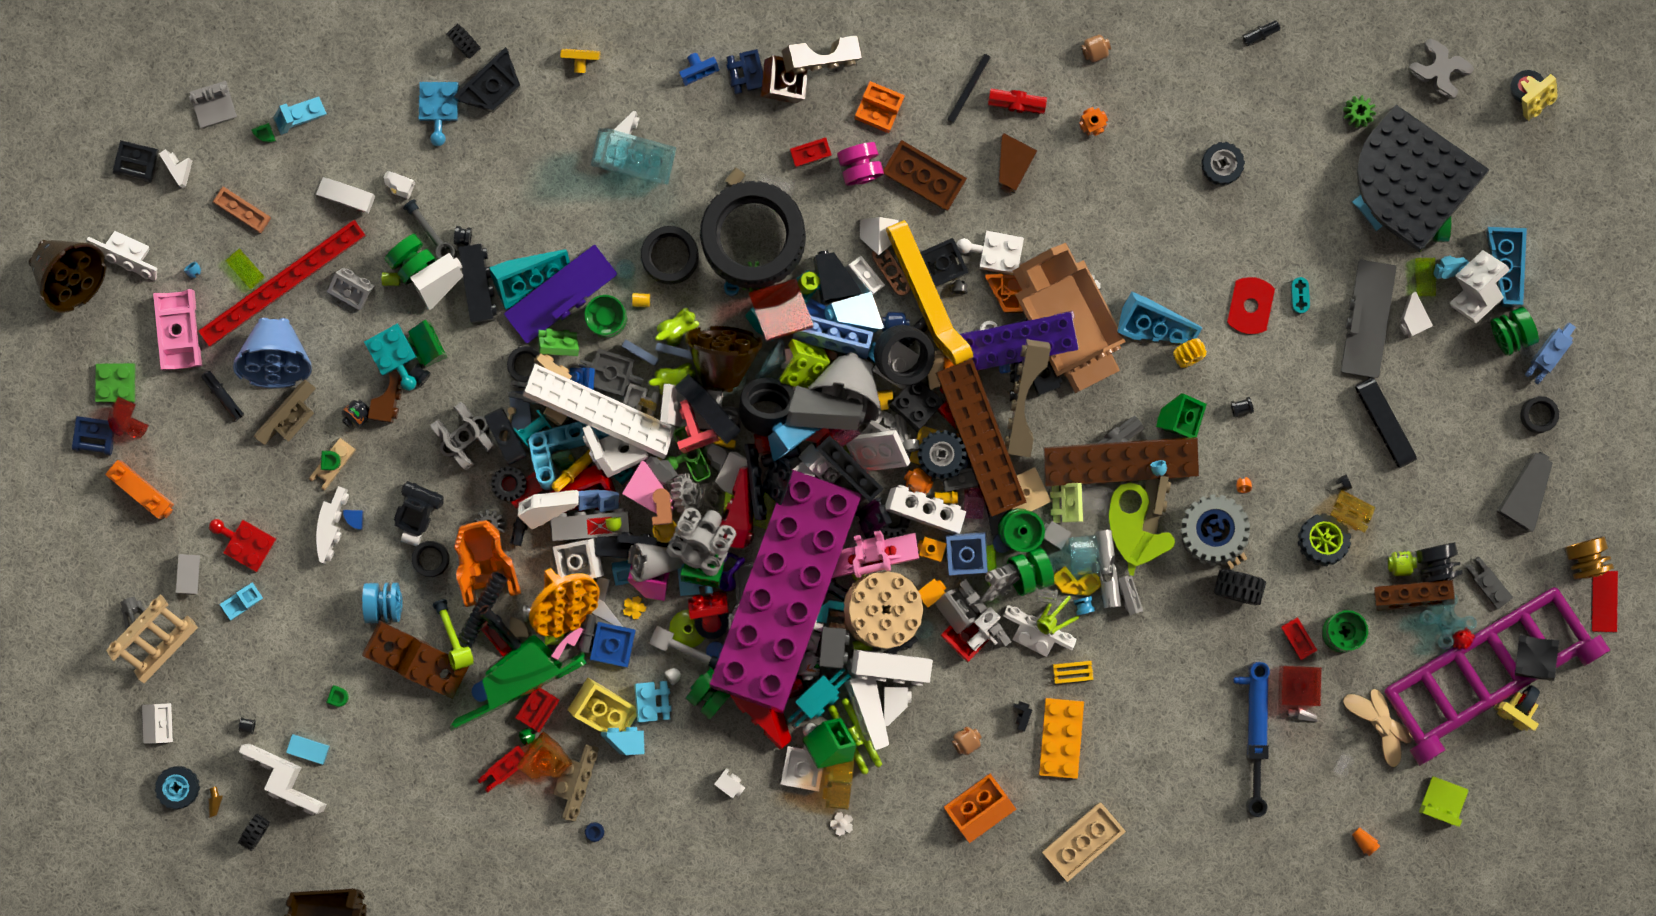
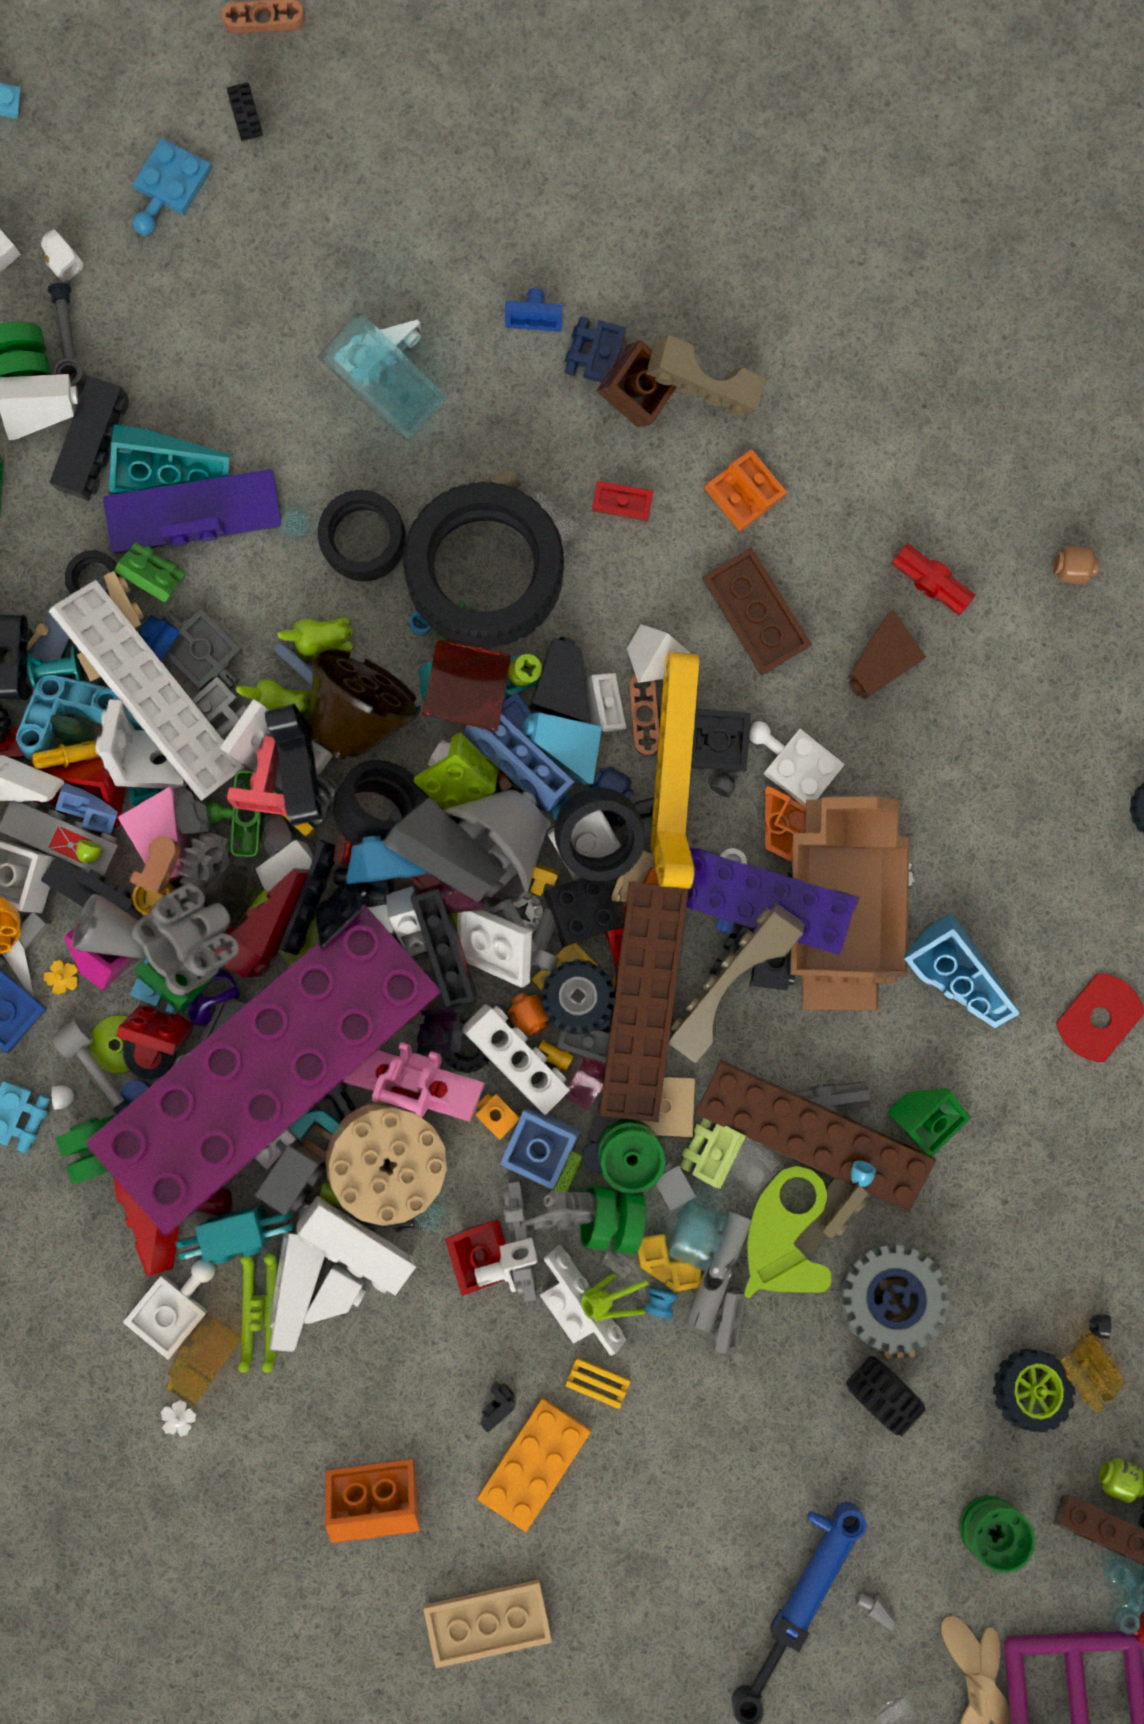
camera: 25 degrees right, 0 degrees up
(462, 236) = (105, 366): black wheel -> none
(491, 84) = (251, 189): black wing -> none
(580, 58) = (387, 216): yellow tile -> none
(606, 316) = (231, 570): green wheel -> none
(621, 572) = (66, 919): dark azure slope -> none
(640, 300) = (293, 575): yellow hinge -> none
(640, 353) = (253, 644): sand blue tile -> none
(648, 404) = (223, 717): clear yellow tile -> none
(730, 784) = (55, 1285): white brick -> none
(774, 359) = (421, 749): clear light blue slope -> none
(809, 666) = (246, 1184): light grey head -> none
(830, 744) = (214, 1307): green slope -> none
(861, 170) = (679, 548): dark pink wheel -> none
(932, 592) = (465, 1173): light orange brick -> none
(956, 610) = (485, 1217): light grey slope -> none
(966, 740) = (404, 1400): medium nougat head -> none
(969, 87) = (877, 528): black bar -> none
(1093, 128) = (1014, 666): orange brick -> none
(1190, 353) = (986, 1038): yellow gear -> none
(1242, 407) = (1017, 1148): black bush -> none
(1244, 485) = (963, 1255): orange hinge -> none
(1298, 638) = (927, 1505): red plate -> none
(1299, 686) = (895, 1573): clear red brick -> none

